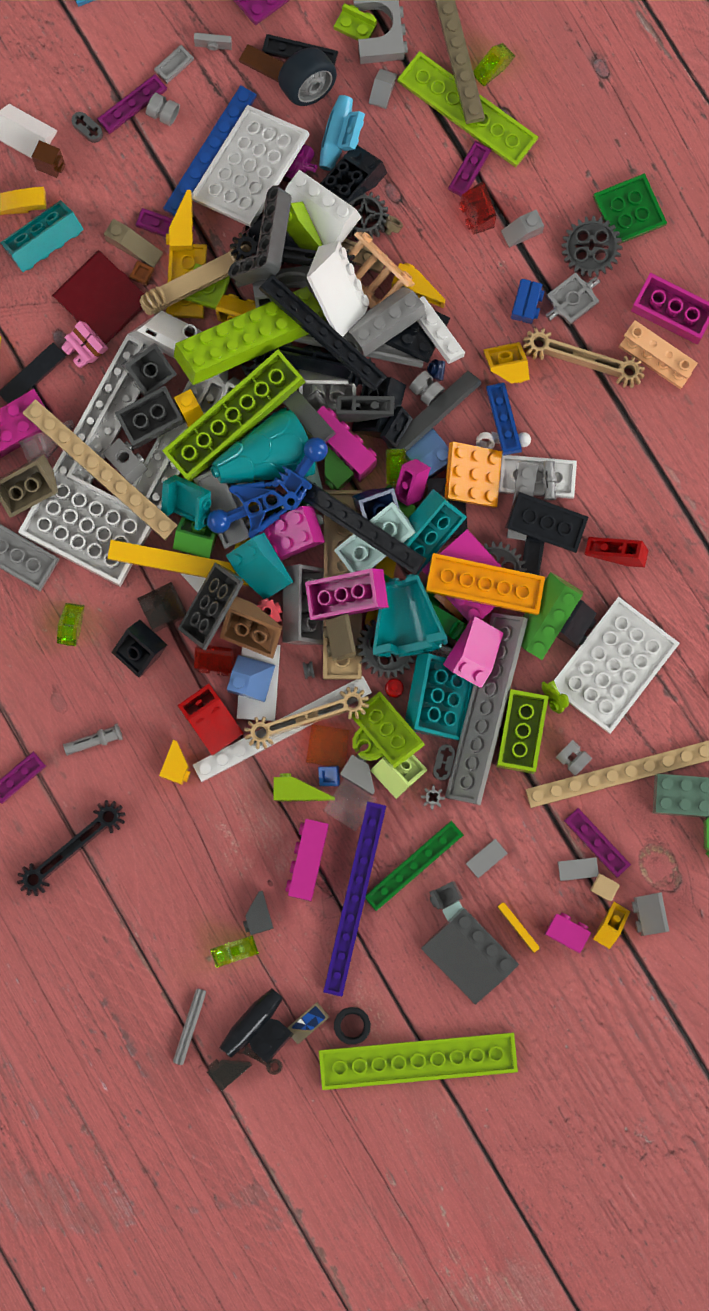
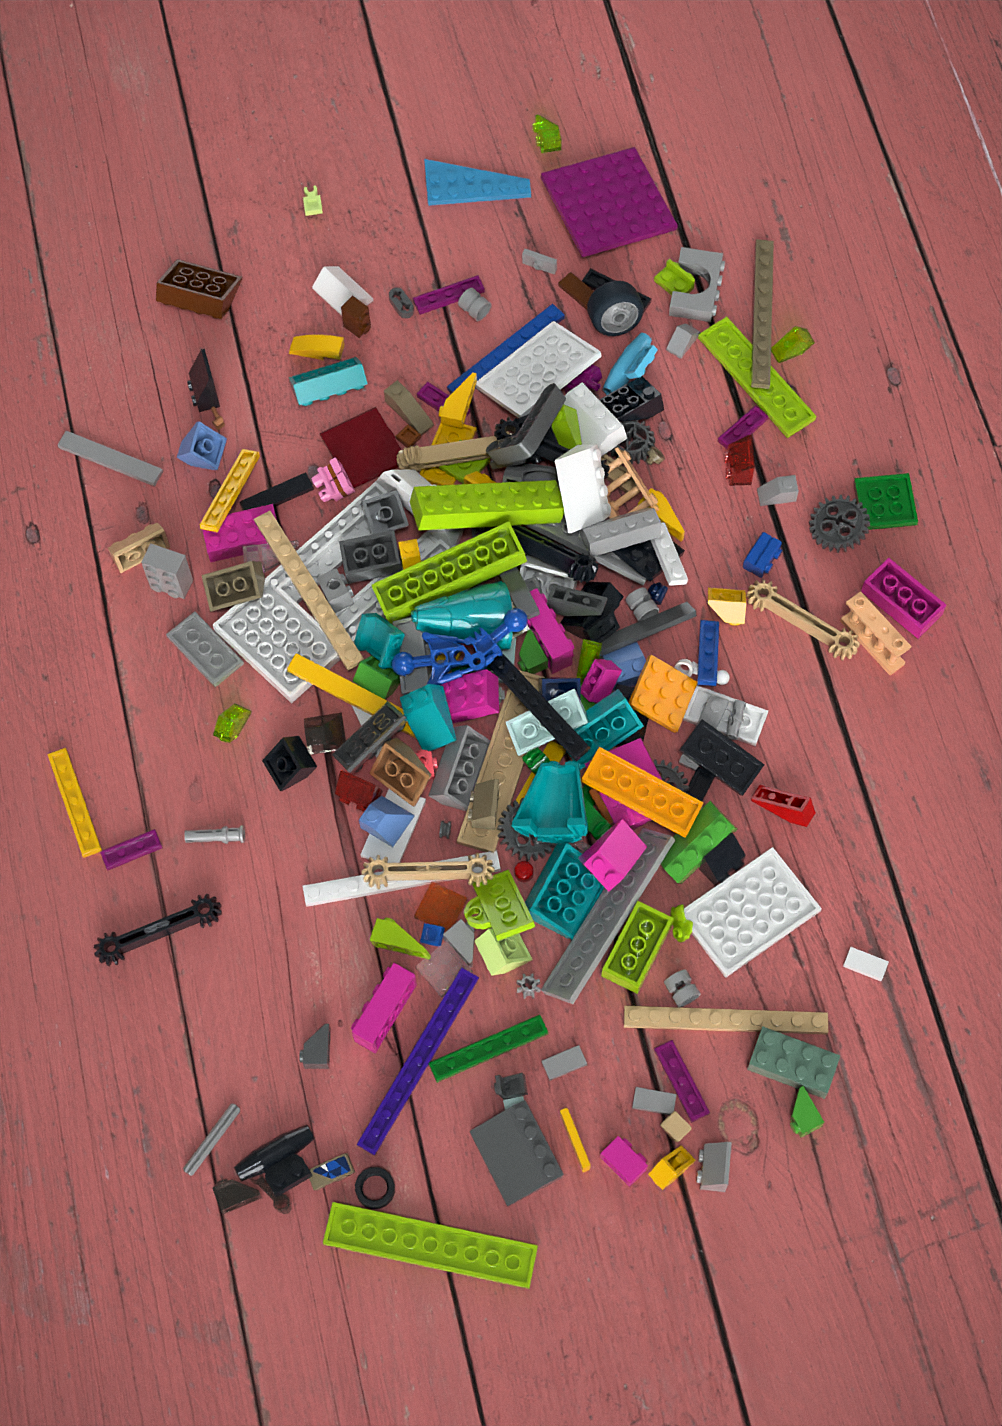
camera: 20 degrees right, 15 degrees down
(174, 64) = (498, 272): light grey tile -> none
(175, 765) = (285, 881): yellow slope -> none
(210, 719) = (334, 846): red slope -> none
(234, 951) = (281, 1077): clear neon green slope -> none
(322, 332) = (556, 520): black tile -> none
(346, 594) = (507, 760): dark pink brick -> none
(439, 761) = (554, 959): dark grey beam -> none
(572, 298) = (807, 564): light grey plate -> none

